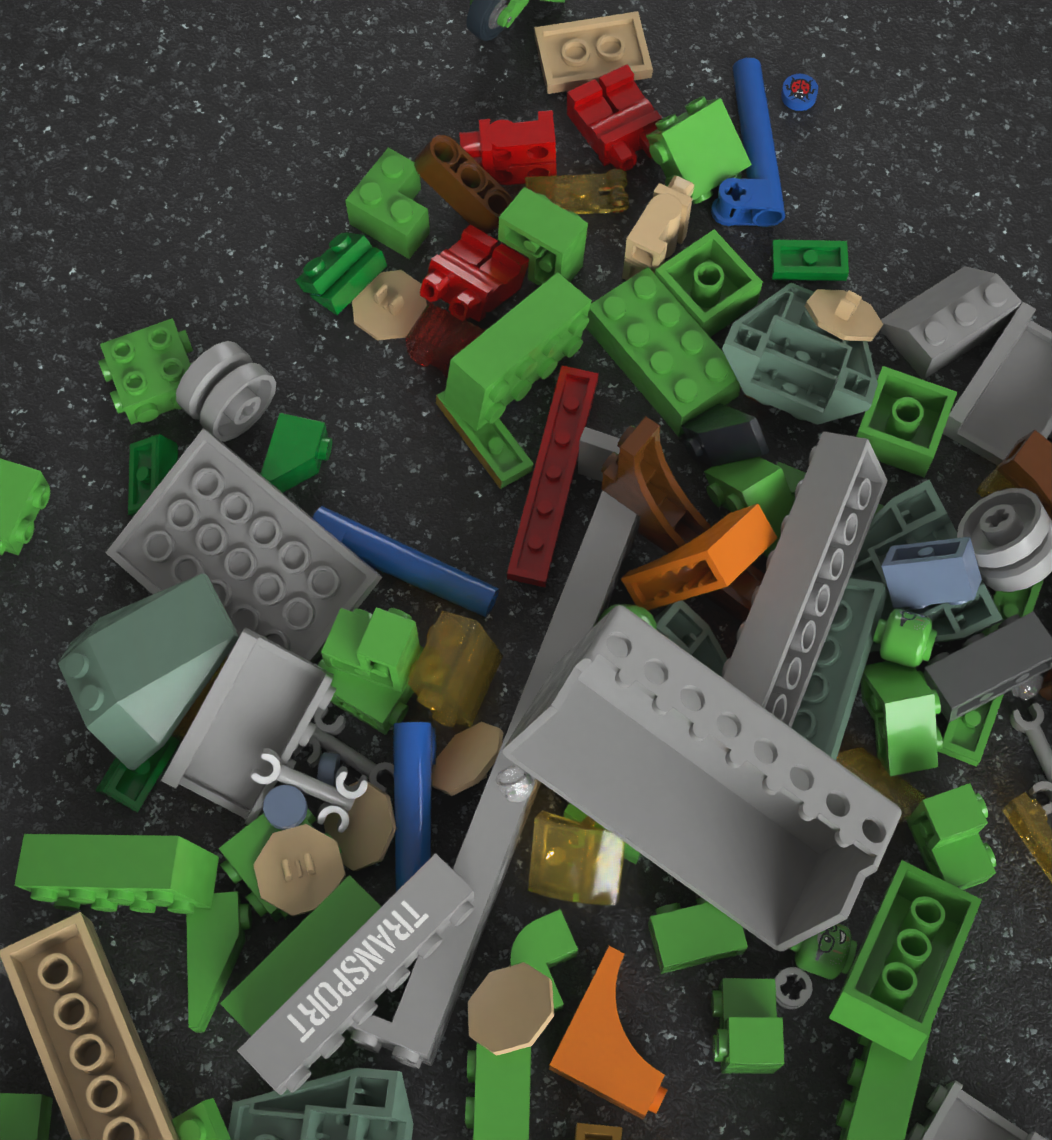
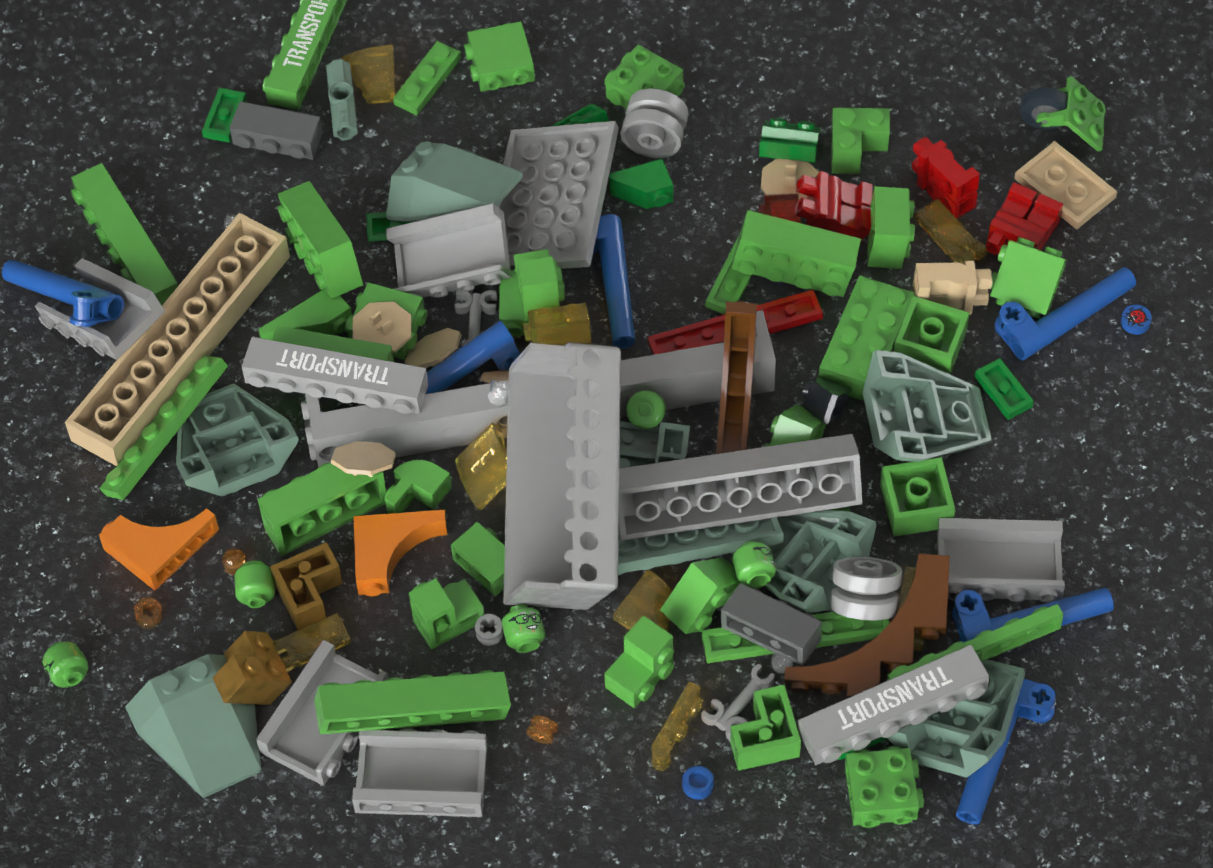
camera: 60 degrees right, 10 degrees down
(285, 807) = (413, 298): sand blue tile -> none
(328, 767) = (455, 317): sand blue tile -> none
(338, 798) = (440, 323): light grey bar -> none
(462, 183) = (900, 150): reddish brown beam -> none
(703, 563) = (723, 421): orange arch -> none
(844, 315) = (975, 427): tan piece -> none
(906, 960) = (540, 664): bright green brick -> none
(932, 573) = (805, 552): sand blue brick -> none
(950, 319) = (1019, 491): light grey slope -> none
(970, 1006) = (542, 729): none -> clear orange bush

